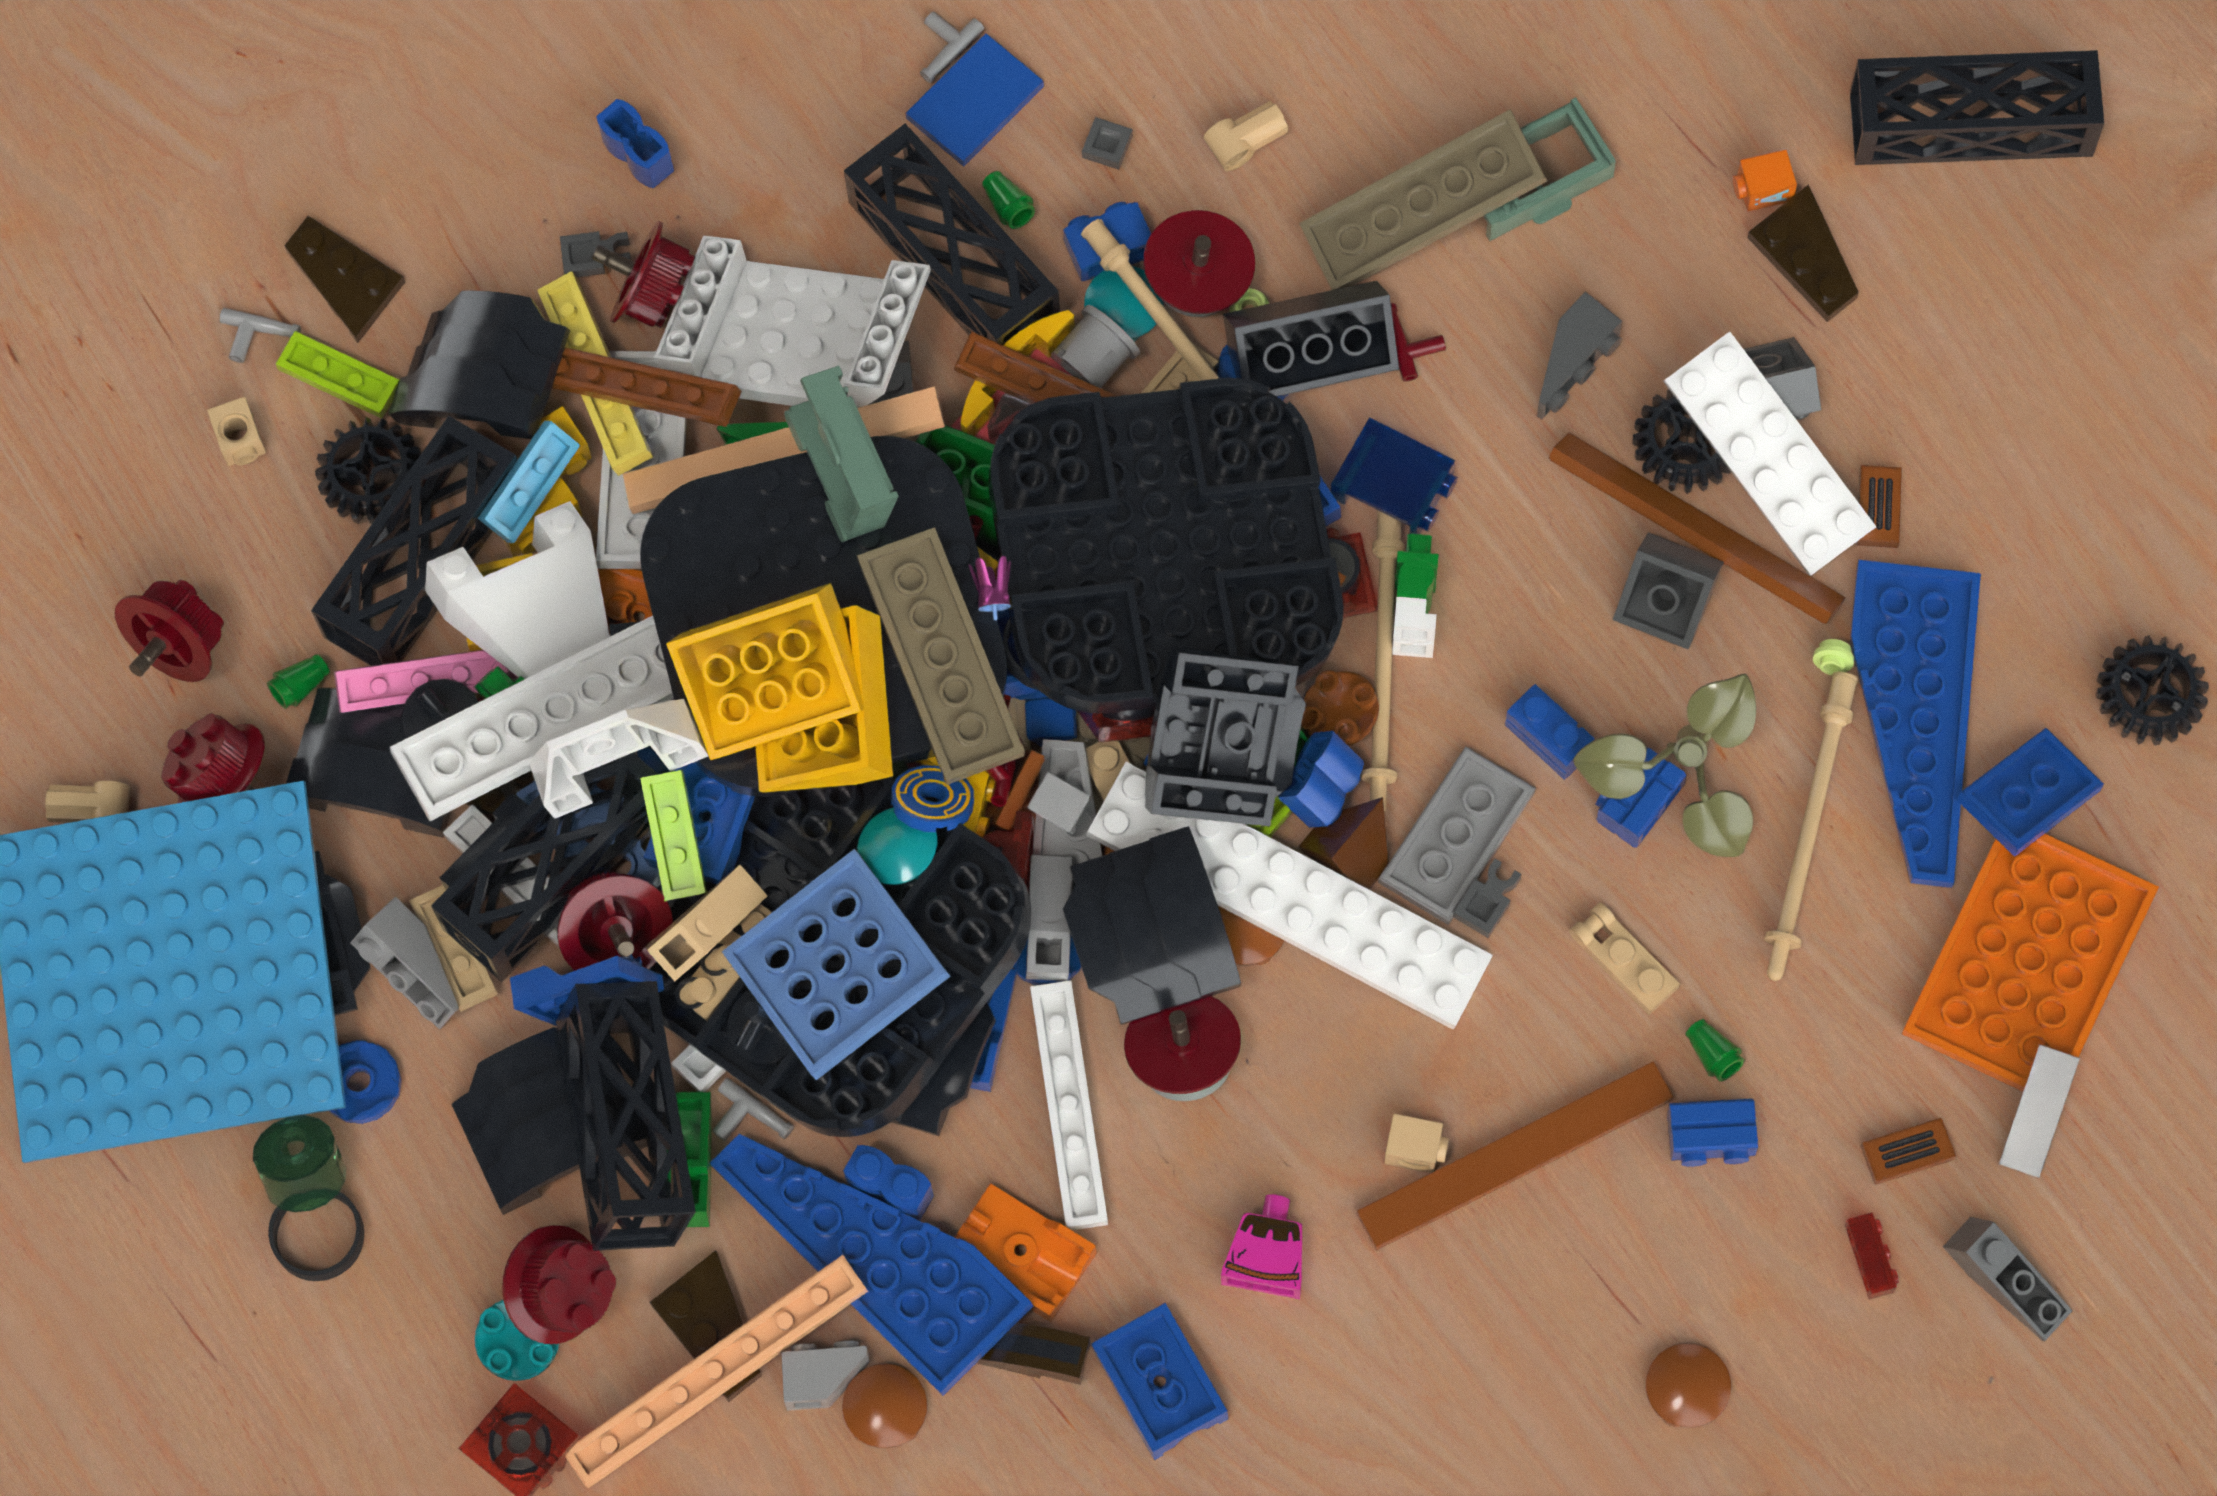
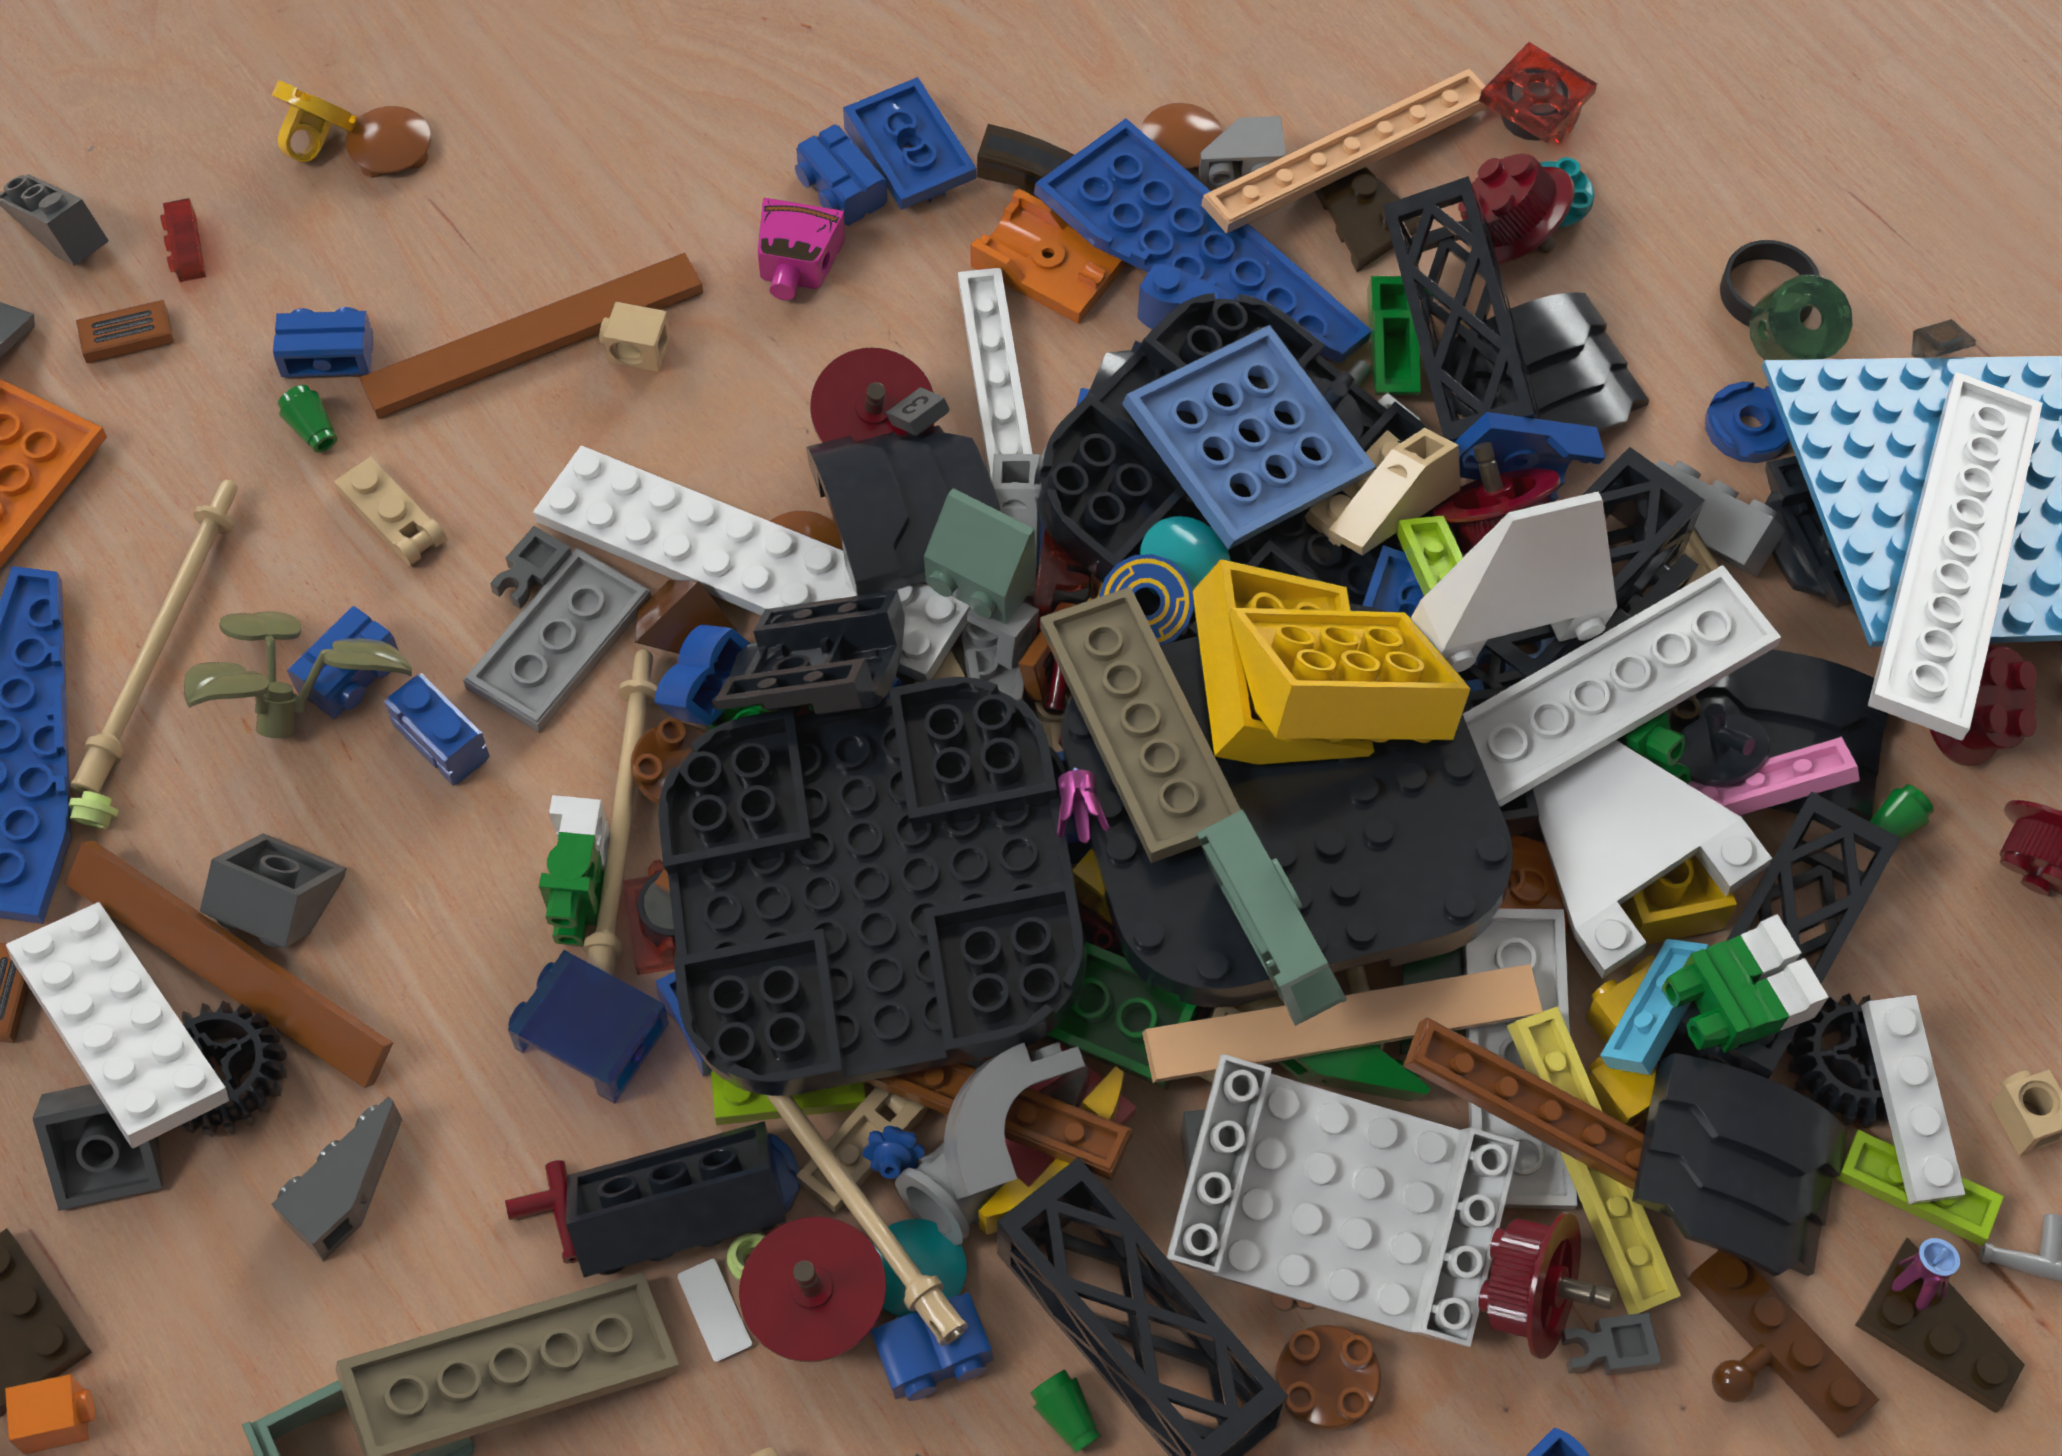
camera: 175 degrees right, 10 degrees down
(164, 1155) = (1940, 340): none -> clear smoke slope
(210, 873) = (1956, 558): none -> white plate
(336, 421) = (1912, 1100): none -> white plate
(346, 291) = (1933, 1263): none -> piece
(454, 253) = (1778, 1340): none -> reddish brown plate
(461, 466) = (1746, 987): none -> green hips
(810, 229) = (1329, 1376): none -> dark orange dish
(1067, 370) = (975, 1124): none -> light grey arch
(1077, 821) = (981, 557): none -> sand green slope
(1139, 1022) = (918, 411): none -> dark grey tile
(1141, 369) = (893, 1151): none -> blue plant
(1227, 1339) = (840, 174): none -> blue brick
(1276, 272) = (714, 1310): none -> white sticker
(1764, 1393) = (308, 114): none -> yellow tile

